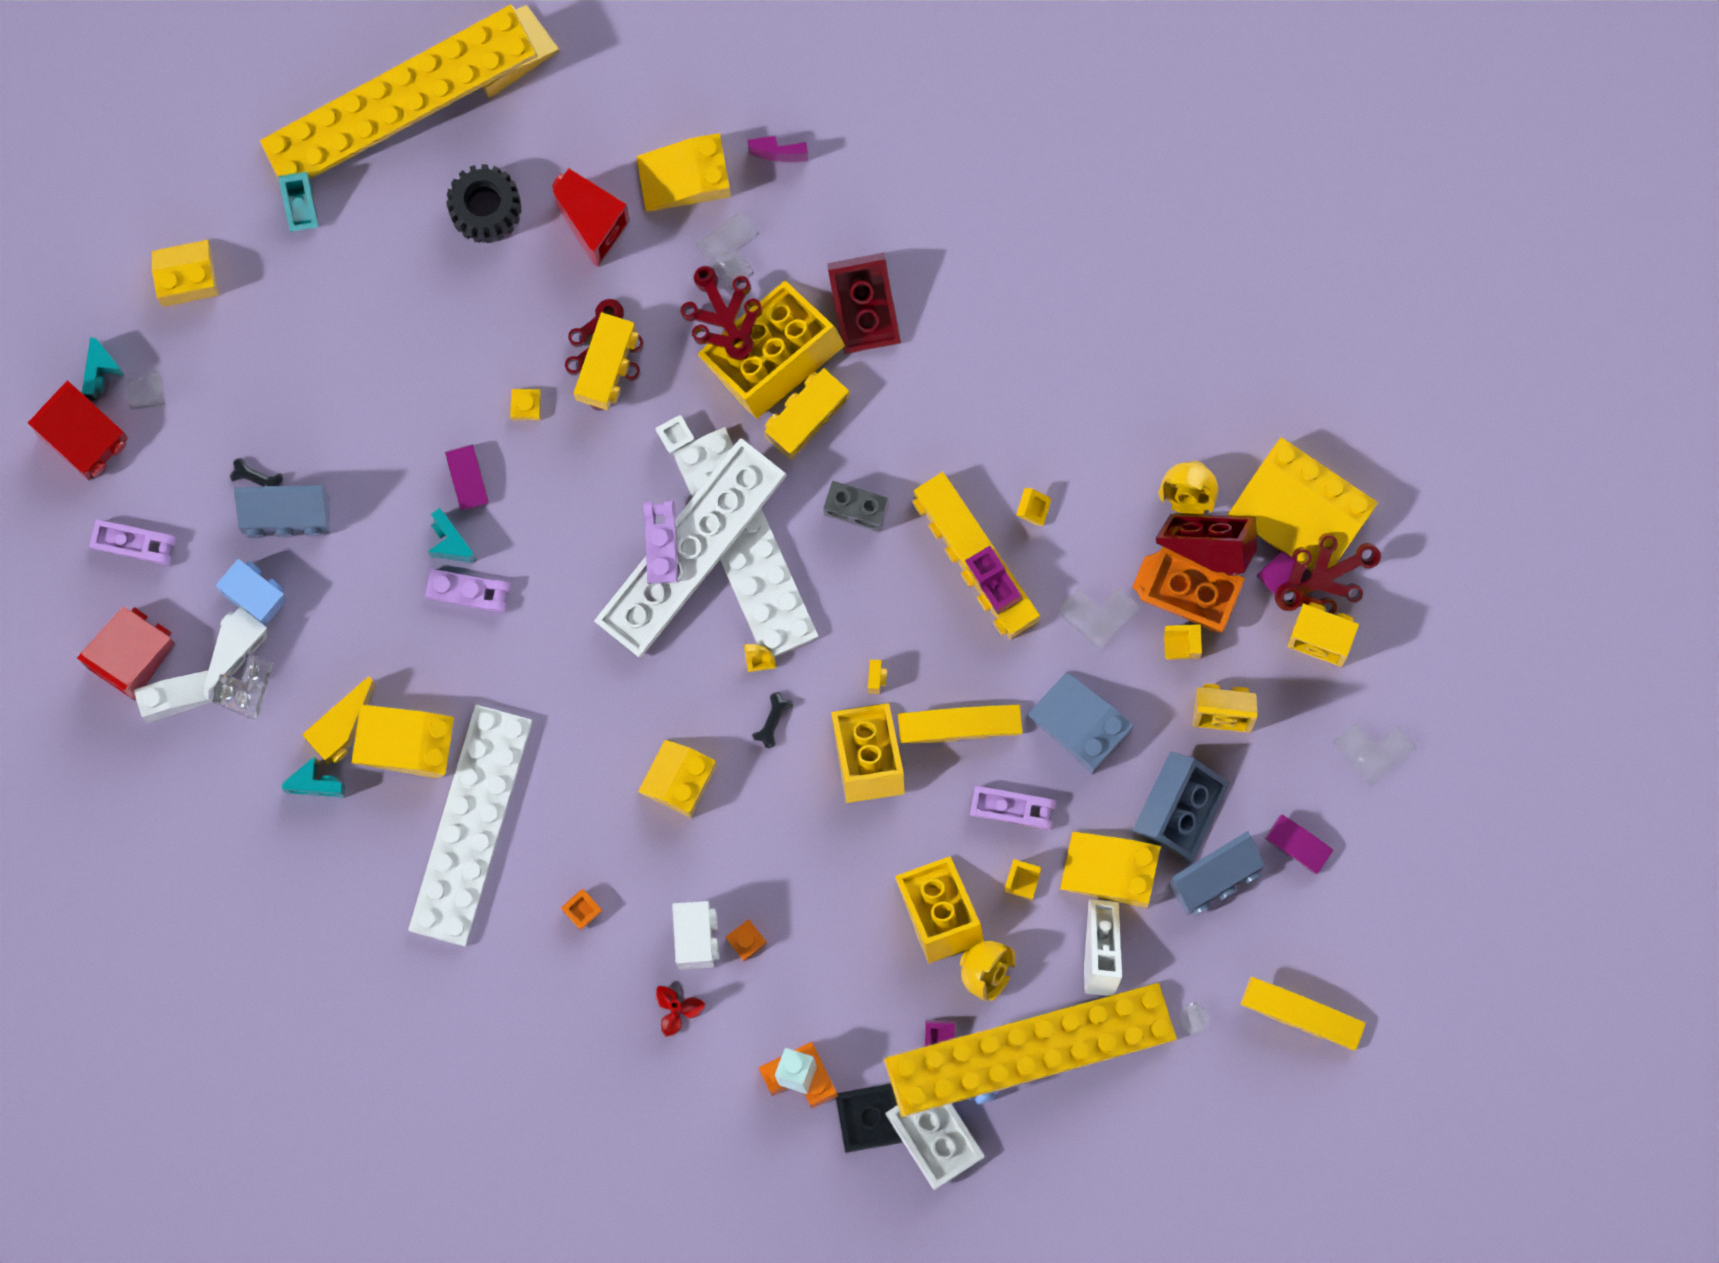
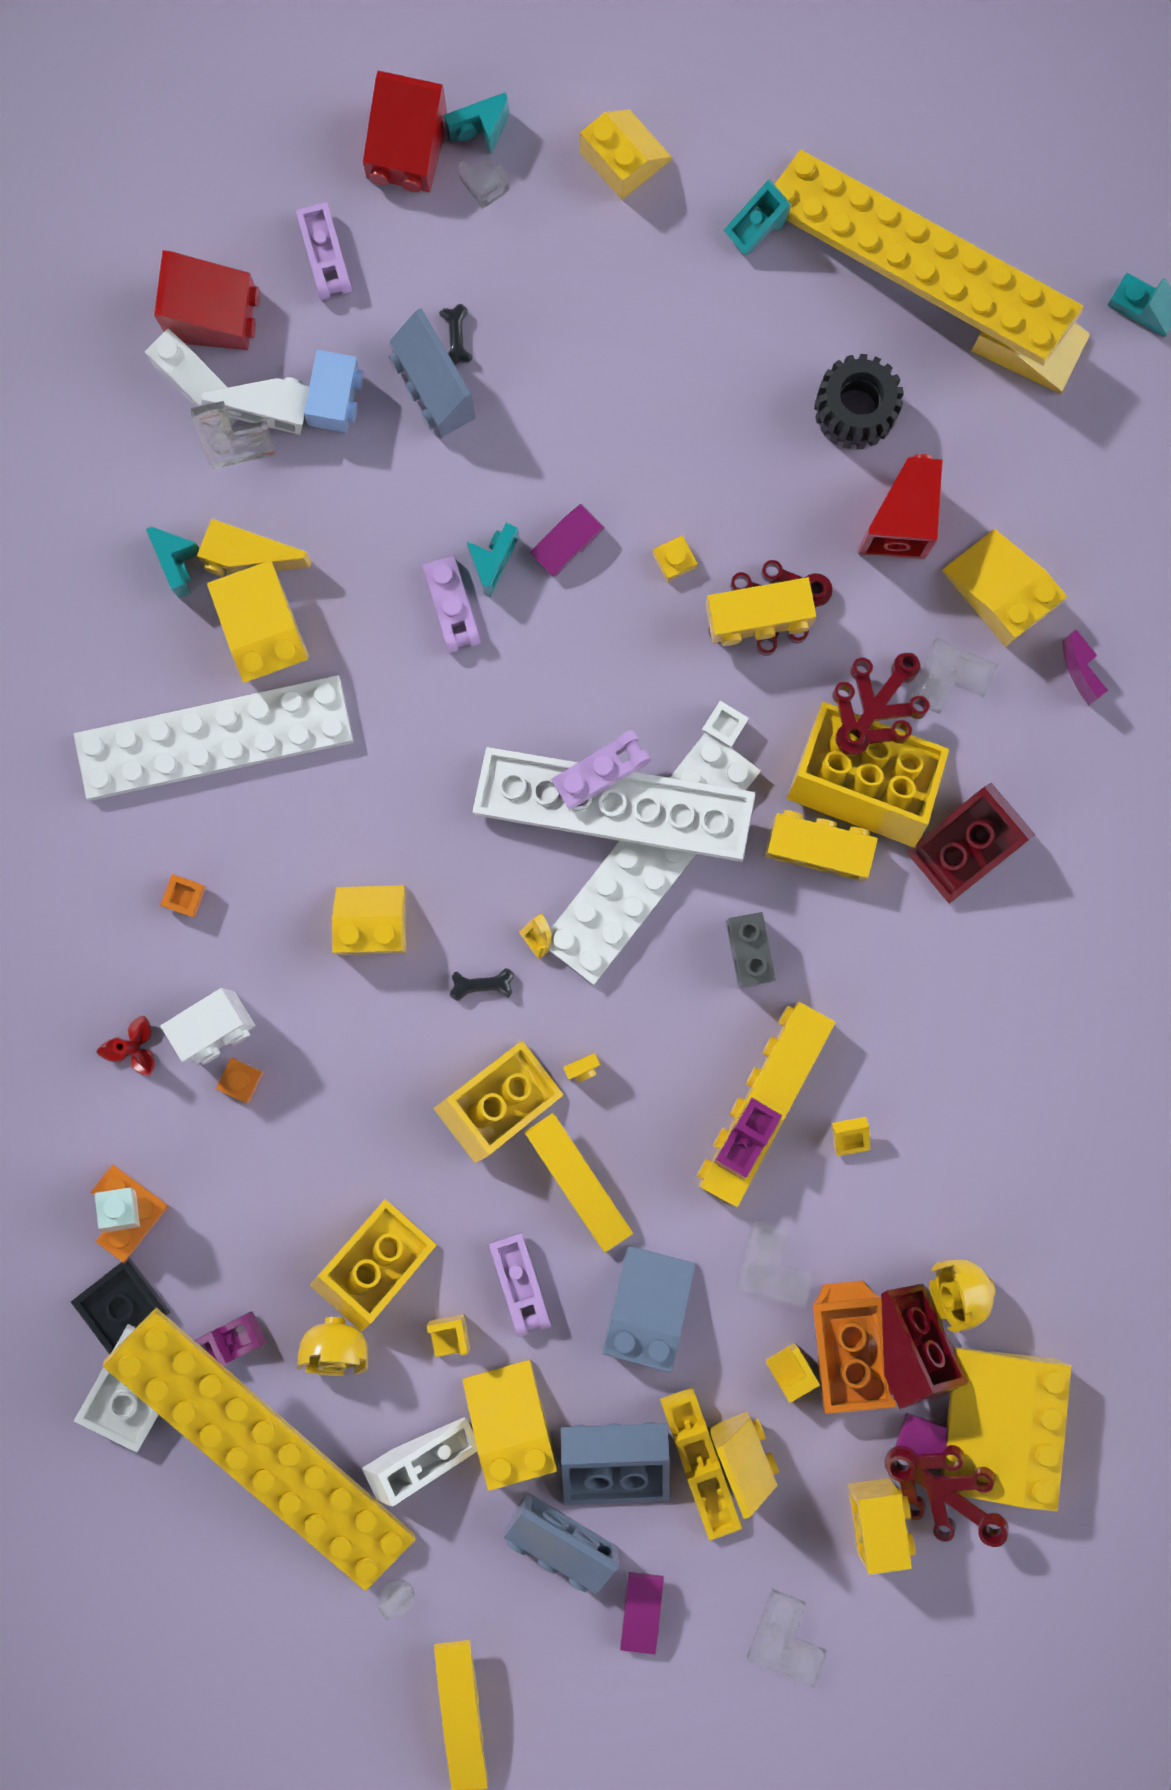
camera: 60 degrees right, 5 degrees up
(1214, 744) = (700, 1463): none -> yellow slope

